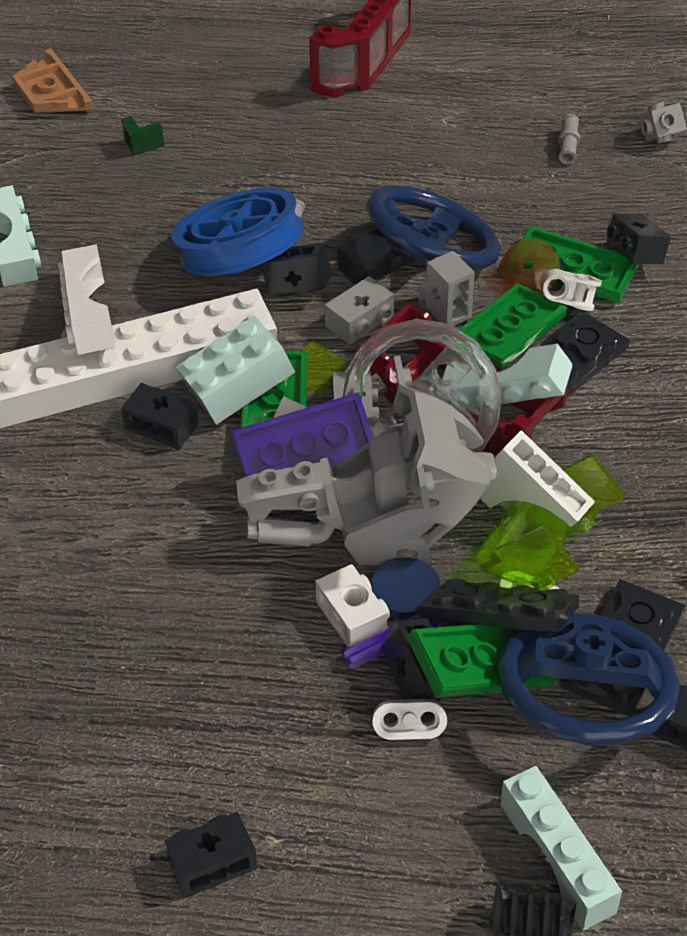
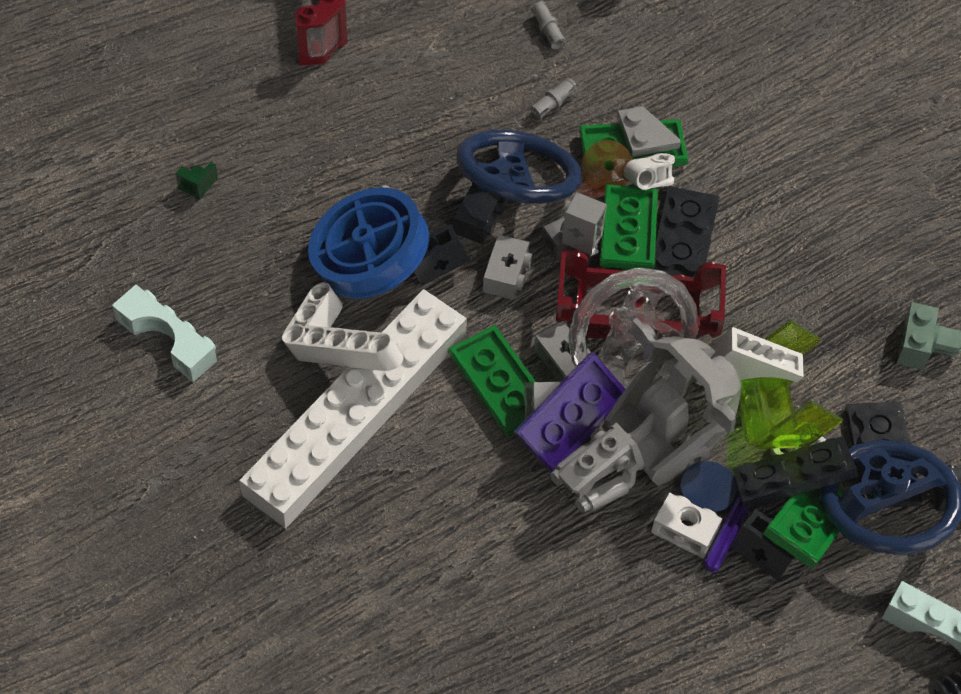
camera: 35 degrees left, 10 degrees up
(51, 87) = (73, 163): medium nougat wing -> none
(86, 320) = (332, 391): white arch -> none
(141, 289) = (313, 339): none -> white beam
(160, 415) = (437, 447): black brick -> none
(235, 369) = (462, 371): light aqua brick -> none
(321, 367) = (512, 327): clear neon green piece -> none
(409, 719) = (786, 592): white plate -> none
(524, 197) = (553, 98): none -> light grey pin
(537, 375) = (706, 271): light aqua arch -> none
(591, 254) = (645, 132): none -> light grey wing
(638, 238) = (671, 102): black brick -> none

